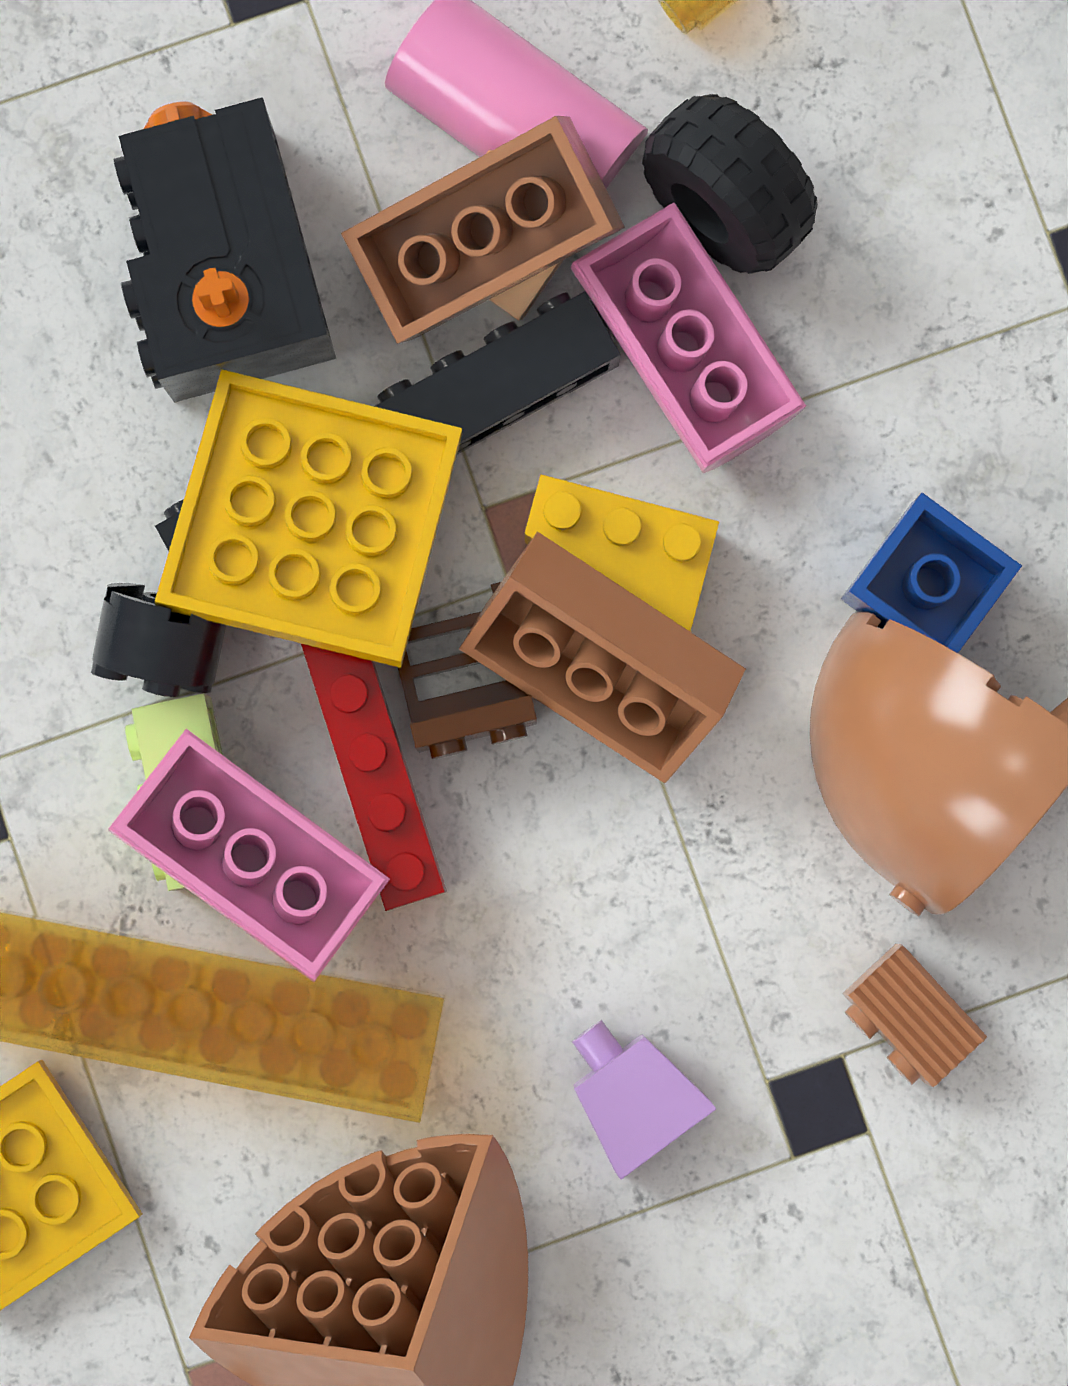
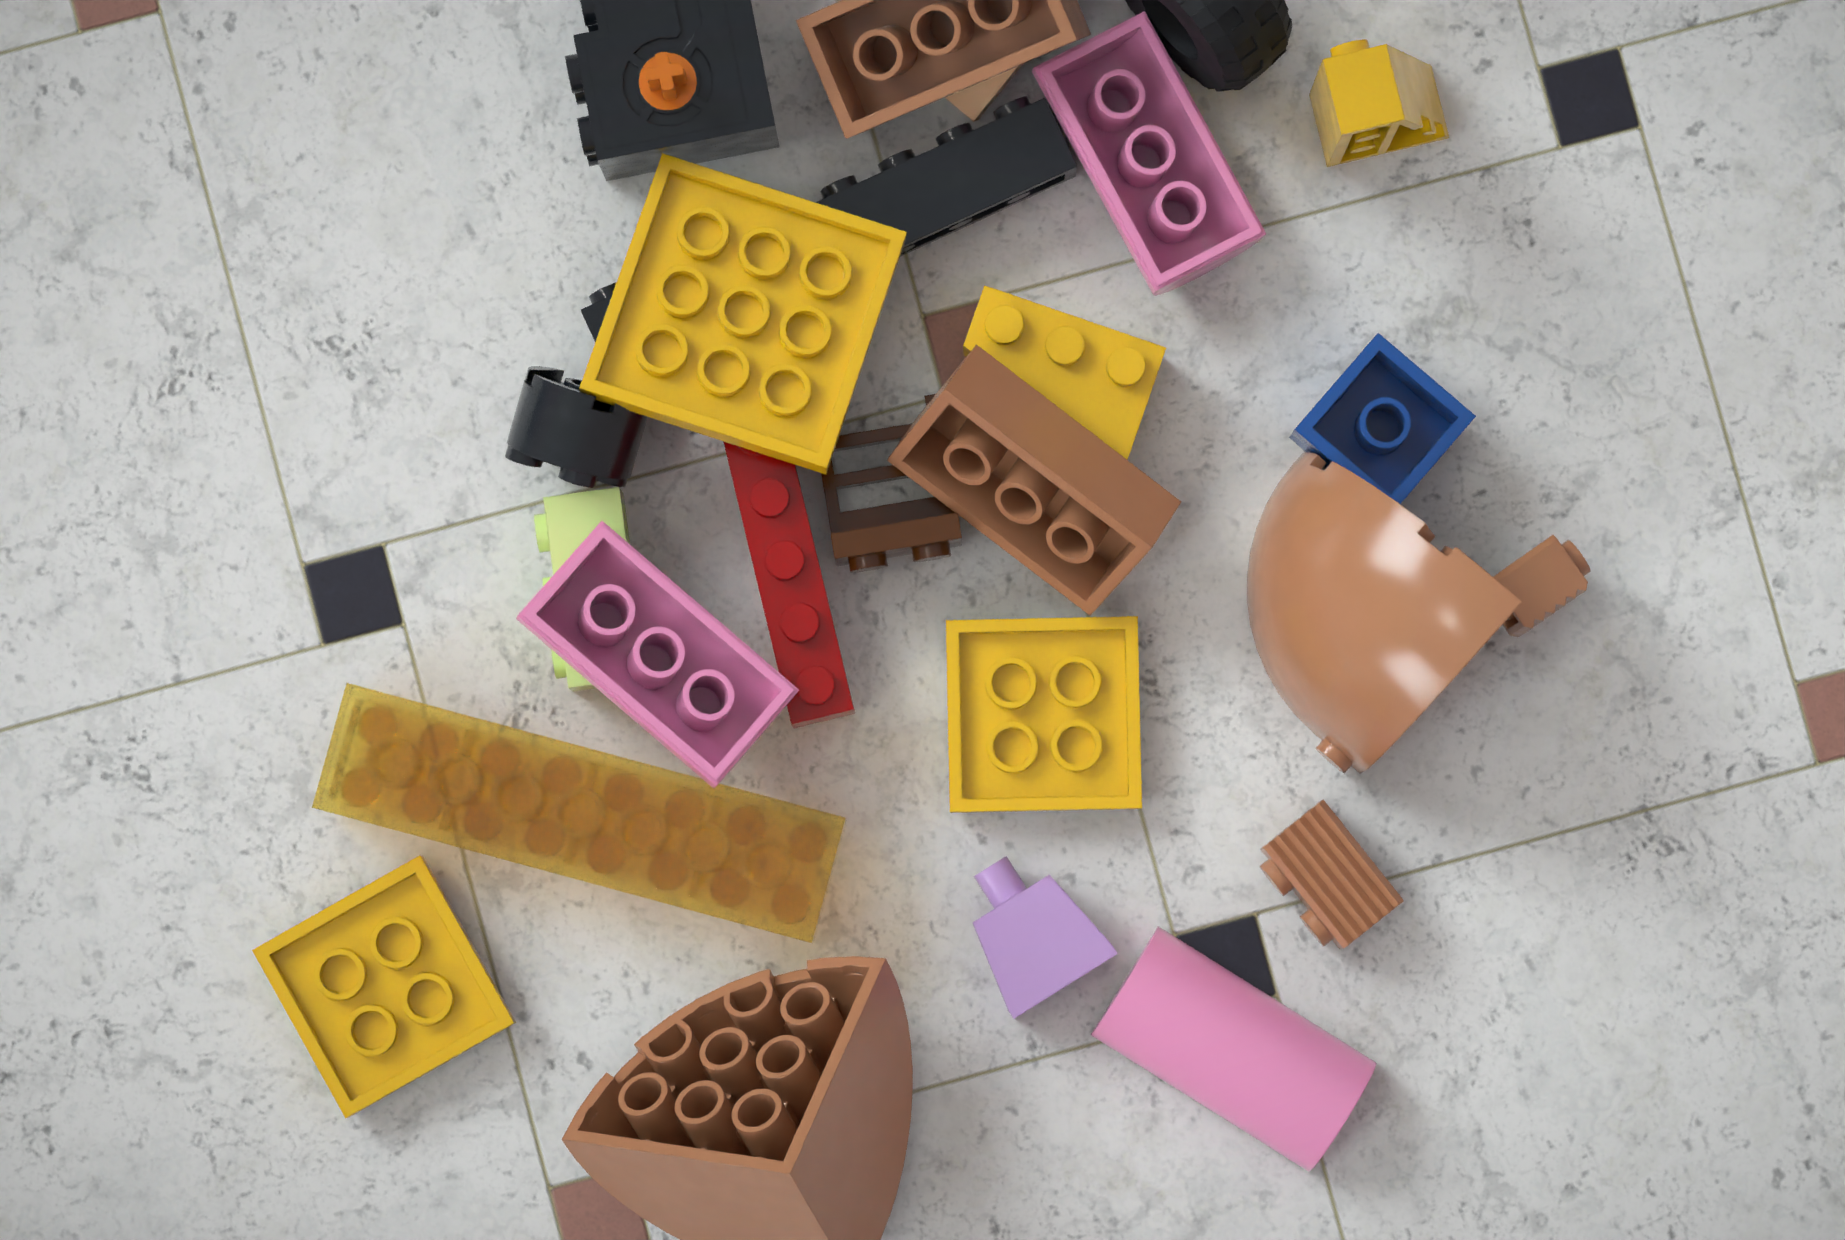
camera: 10 degrees right, 0 degrees up
(627, 881) = (1043, 714): none -> yellow plate
(836, 1190) = (1235, 1049): none -> bright pink brick
(896, 273) = (1374, 102): none -> yellow wedge

